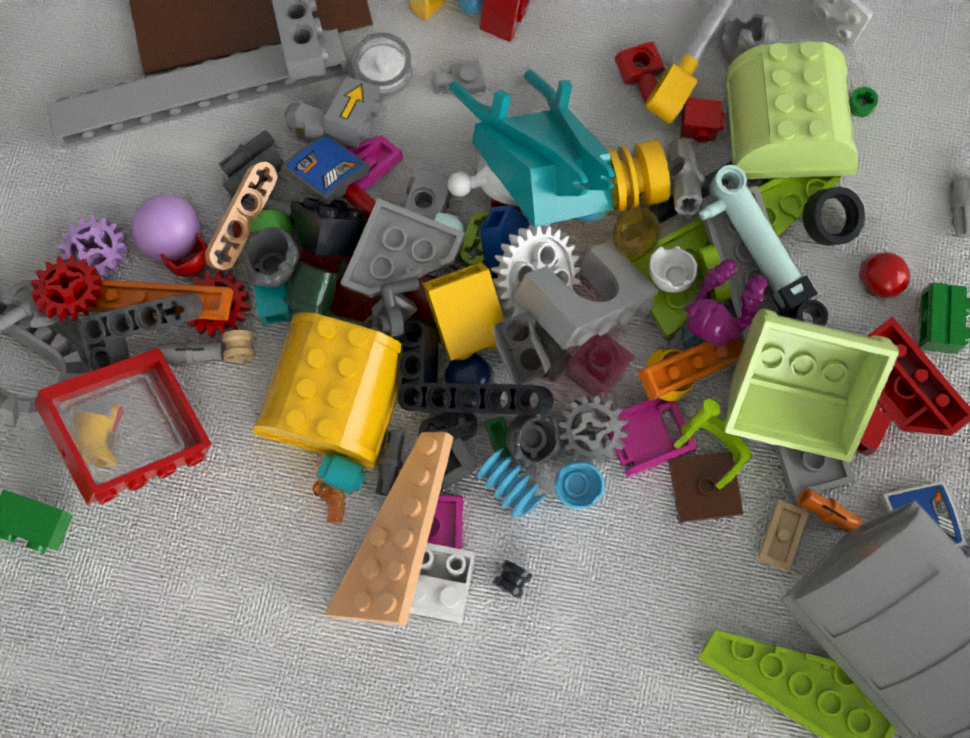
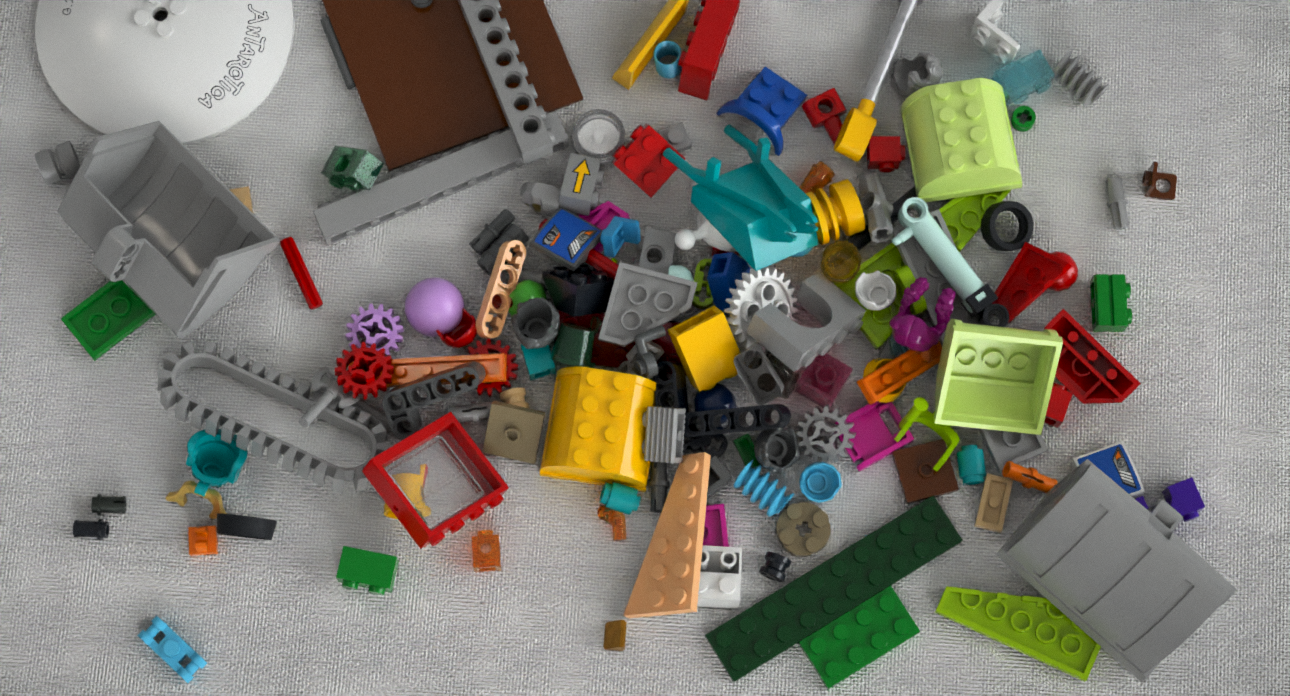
camera: 10 degrees left, 0 degrees up
(25, 174) = (301, 273): none -> red axle
(98, 63) = (352, 168): none -> clear green brick
(182, 526) = (486, 561): none -> clear orange brick
(229, 380) = (513, 432): none -> dark tan plate
(311, 637) = (615, 635): none -> pearl gold slope
(385, 169) = (618, 232): none -> dark azure bracket
(401, 405) = (663, 434): none -> light grey brick
(427, 93) = (644, 159): none -> red plate
(559, 555) = (811, 542): none -> dark tan plate
(577, 614) = (833, 588): none -> dark green plate
(578, 51) = (767, 103): none -> blue piece
(602, 678) = (859, 637): none -> green plate
(624, 134) = (817, 177): none -> clear orange cone
(761, 487) = (971, 465): none -> teal brick
(854, 276) = (1028, 278): none -> red wing
(872, 56) = (1024, 77): none -> clear light blue brick
(932, 65) = (1079, 79): none -> light grey piece

